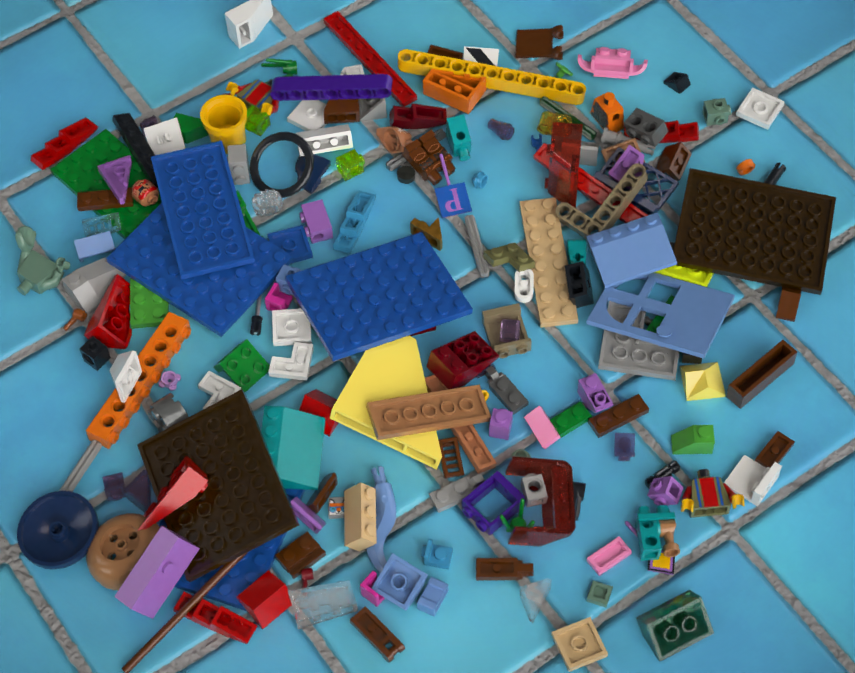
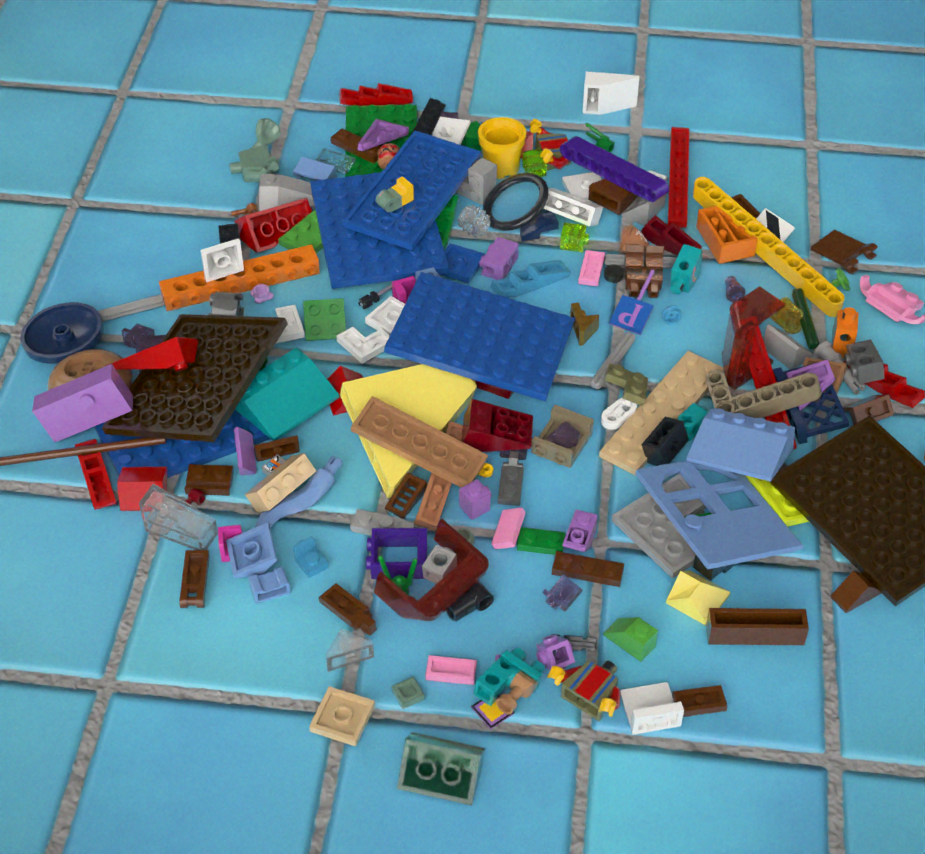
camera: 40 degrees right, 10 degrees down
(203, 225) = (396, 195): none -> leg
(388, 181) = (591, 268): none -> bright pink plate

